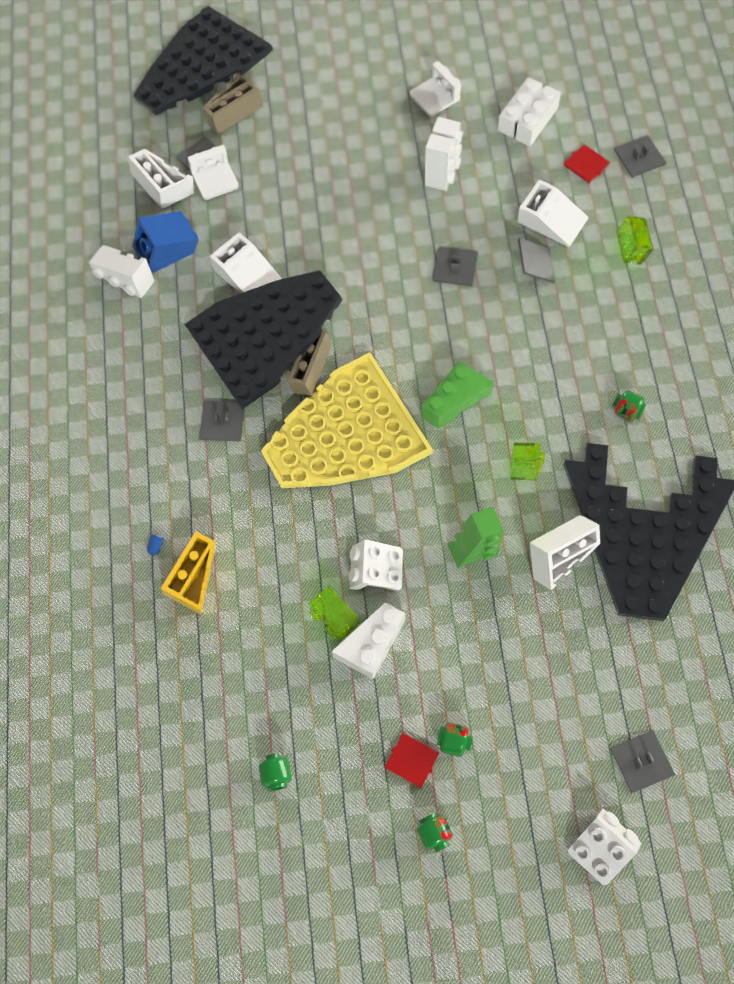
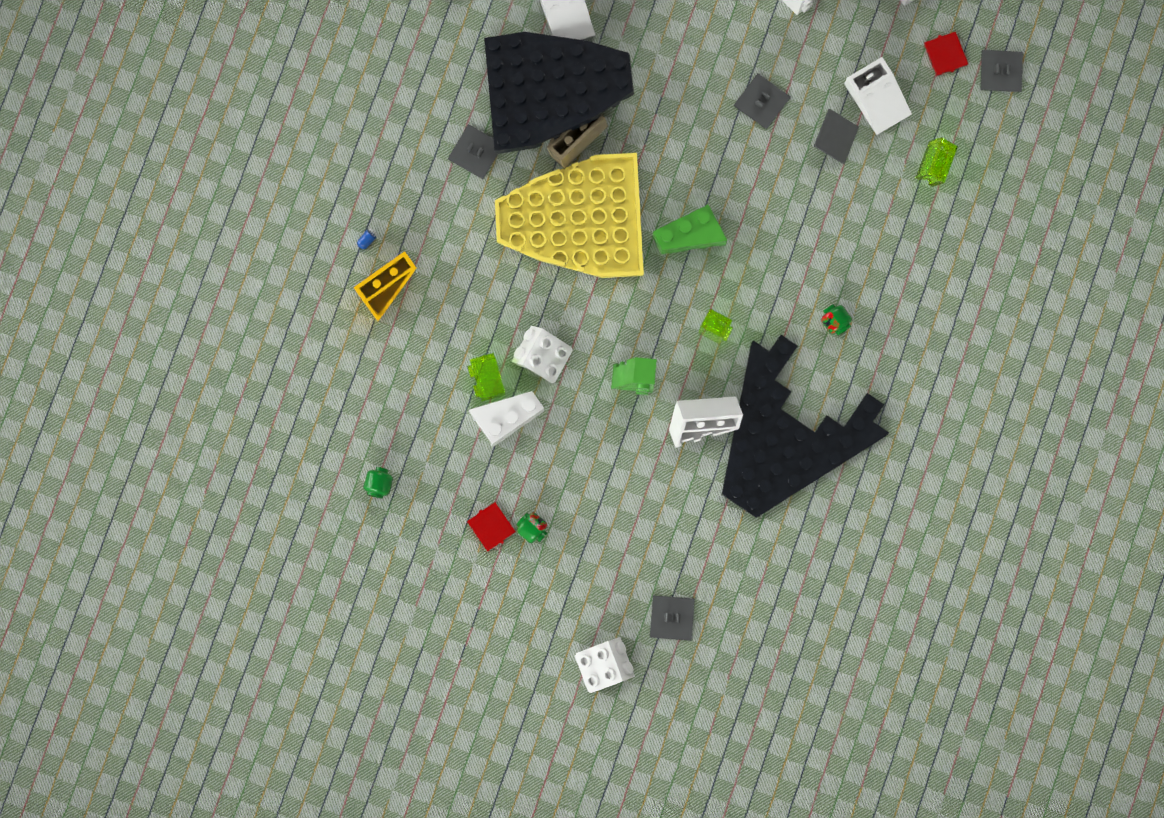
camera: 20 degrees right, 15 degrees up
(434, 832) = (480, 589): green head -> none

